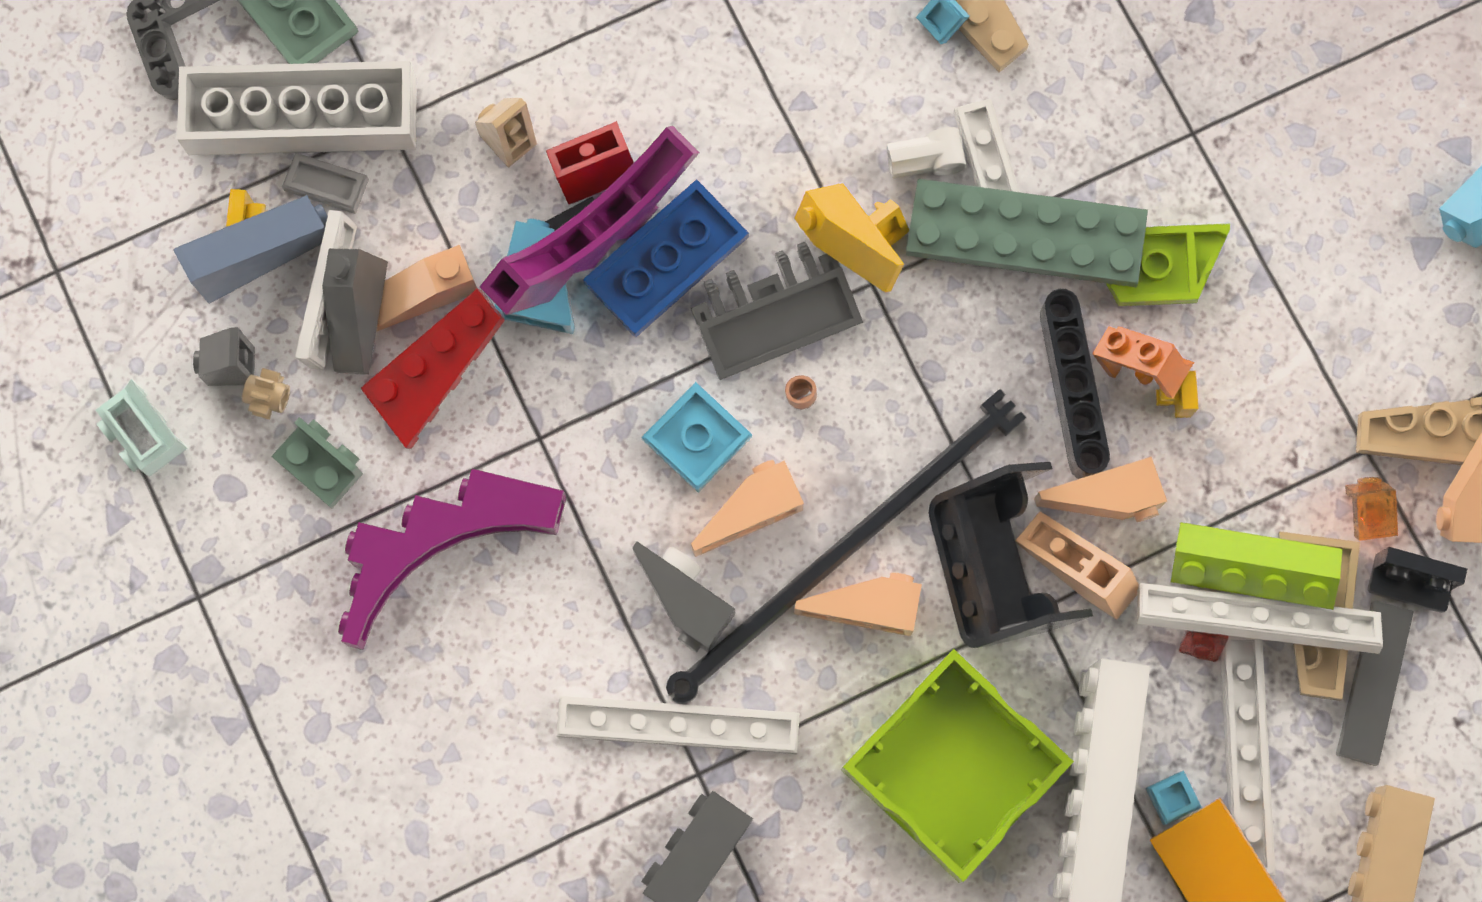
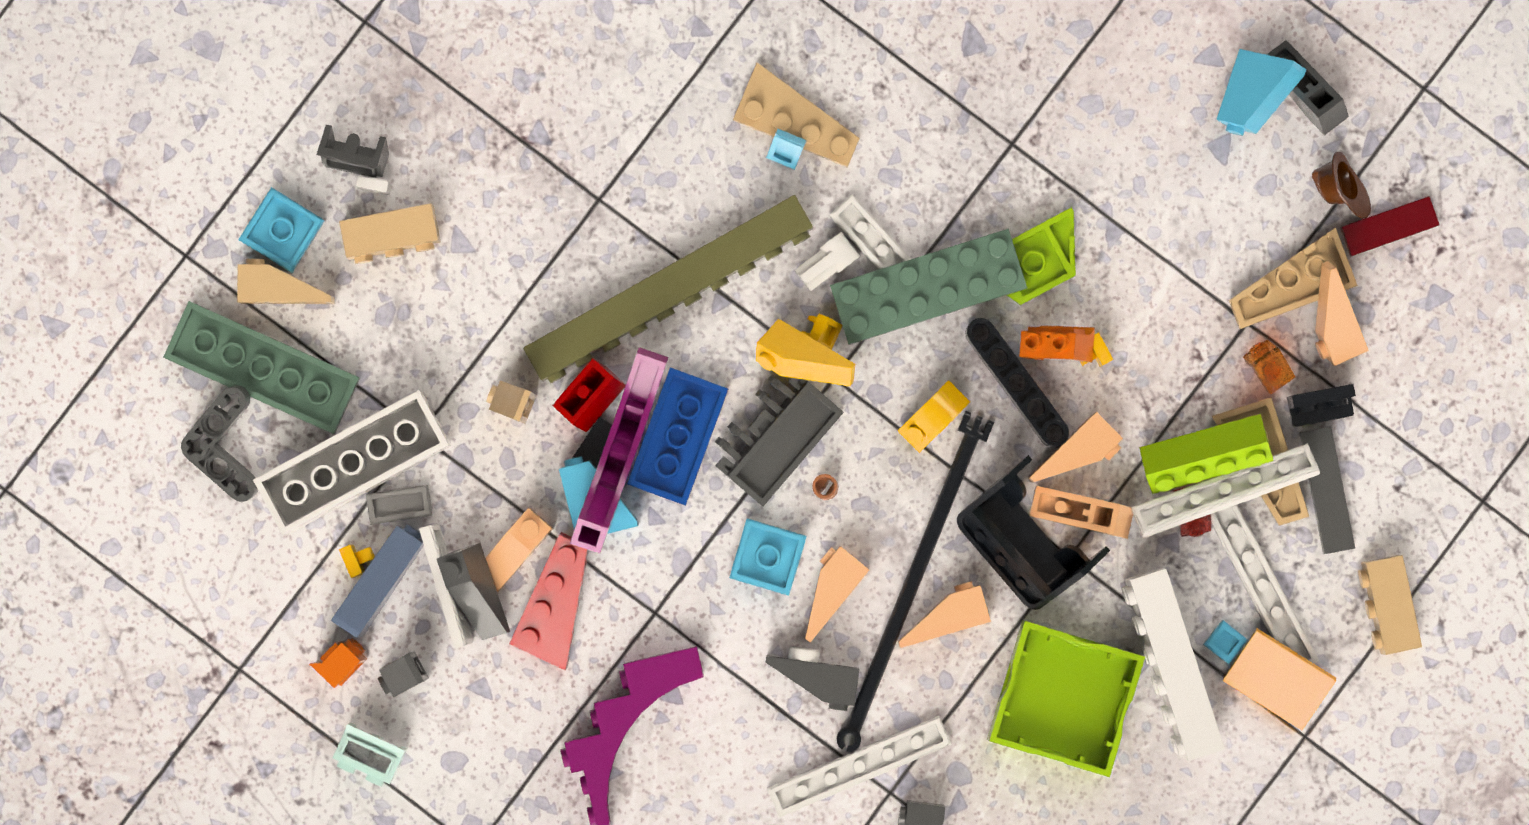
camera: 30 degrees left, 10 degrees up
(163, 309) = (340, 662): none -> orange window
(266, 393) = (445, 683): tan gear -> none
(318, 463) = (507, 712): sand green bracket -> none
(740, 98) = (669, 288): none -> olive brick
(961, 372) = (934, 416): none -> yellow brick

